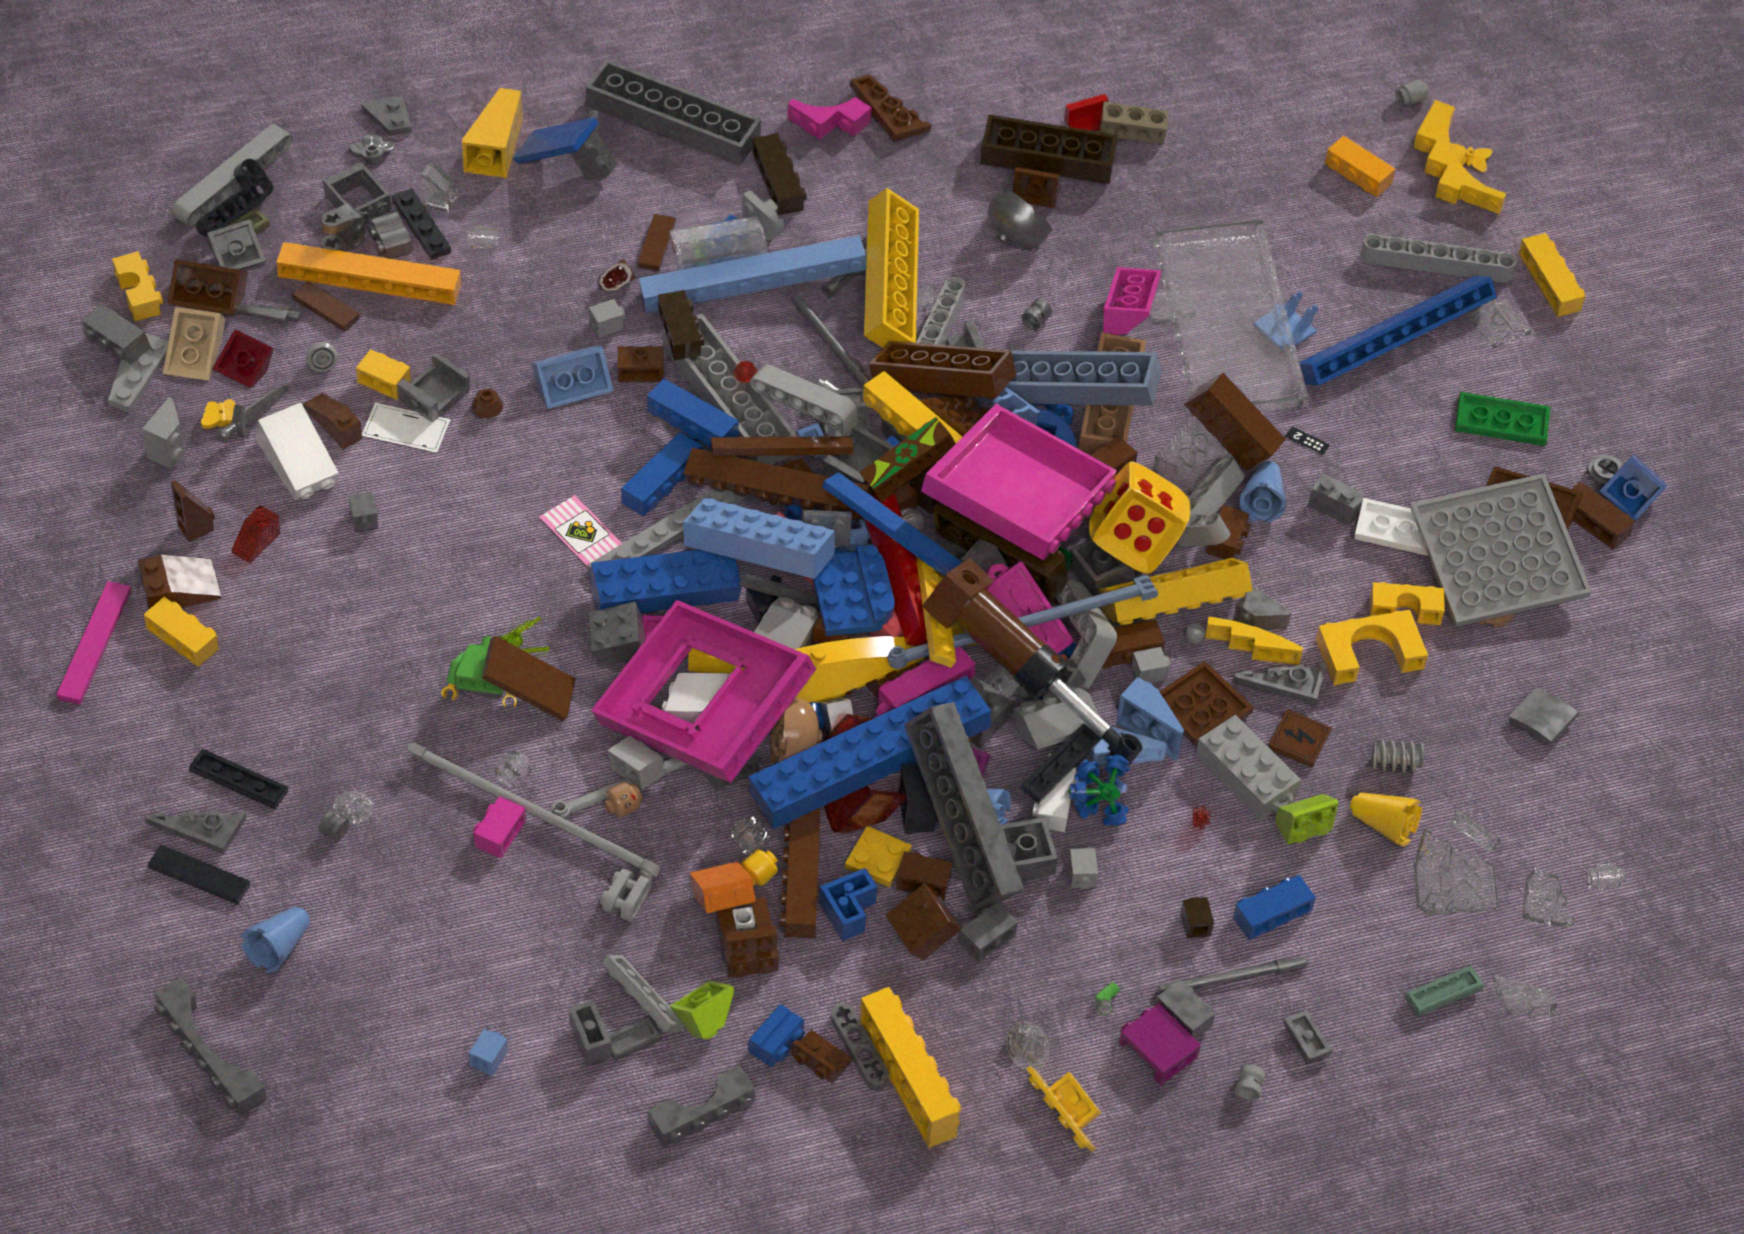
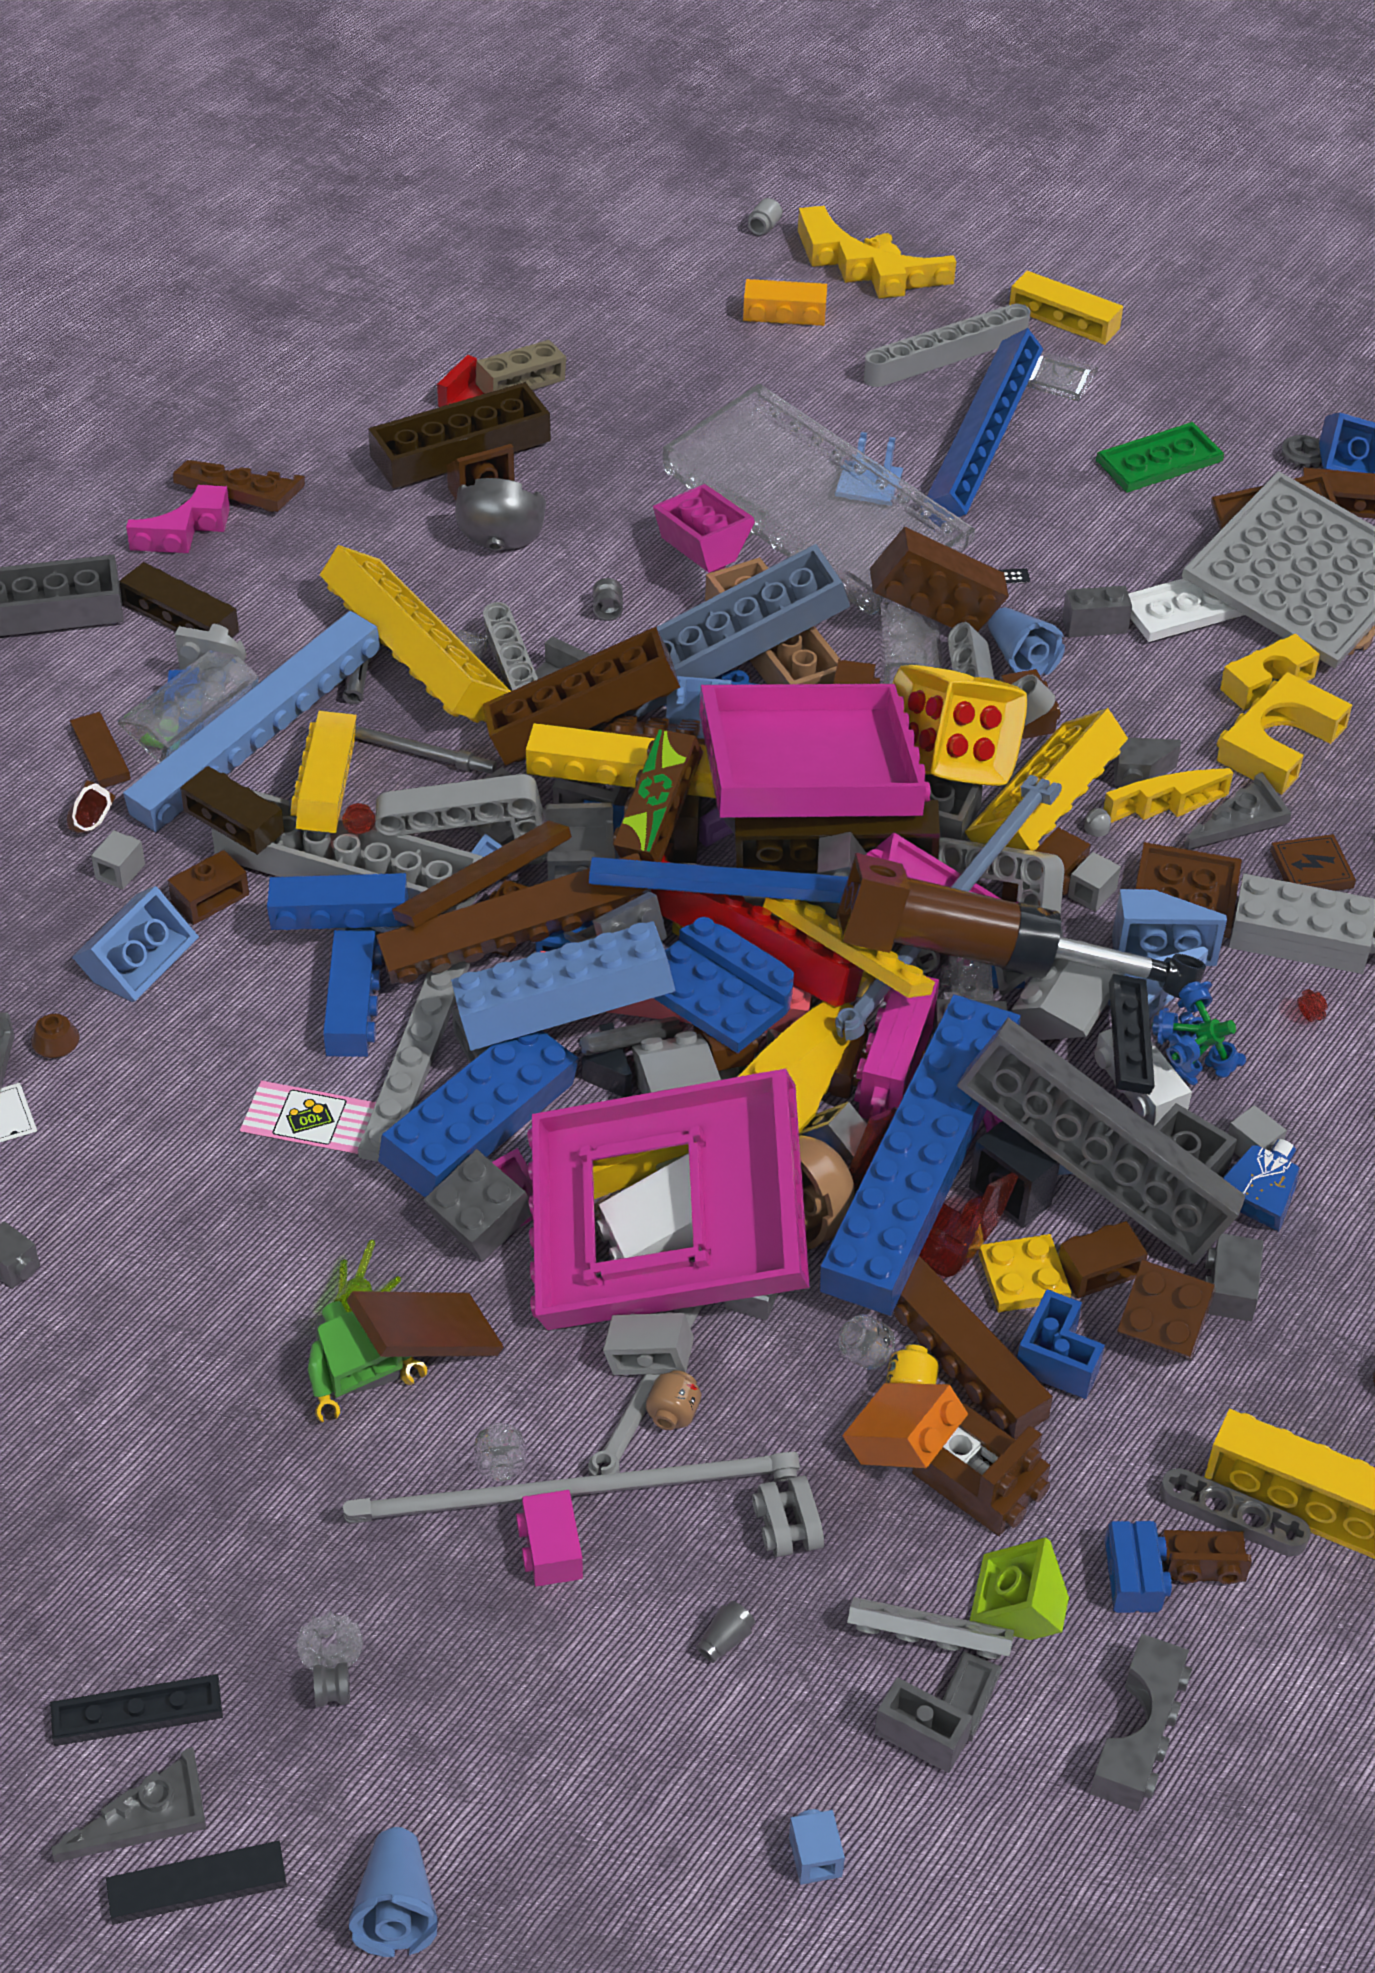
camera: 35 degrees left, 5 degrees down
(542, 928) = (726, 1630): none -> flat silver cone
(757, 331) = (324, 772): none -> yellow brick
(1056, 893) = (1267, 1182): none -> blue torso

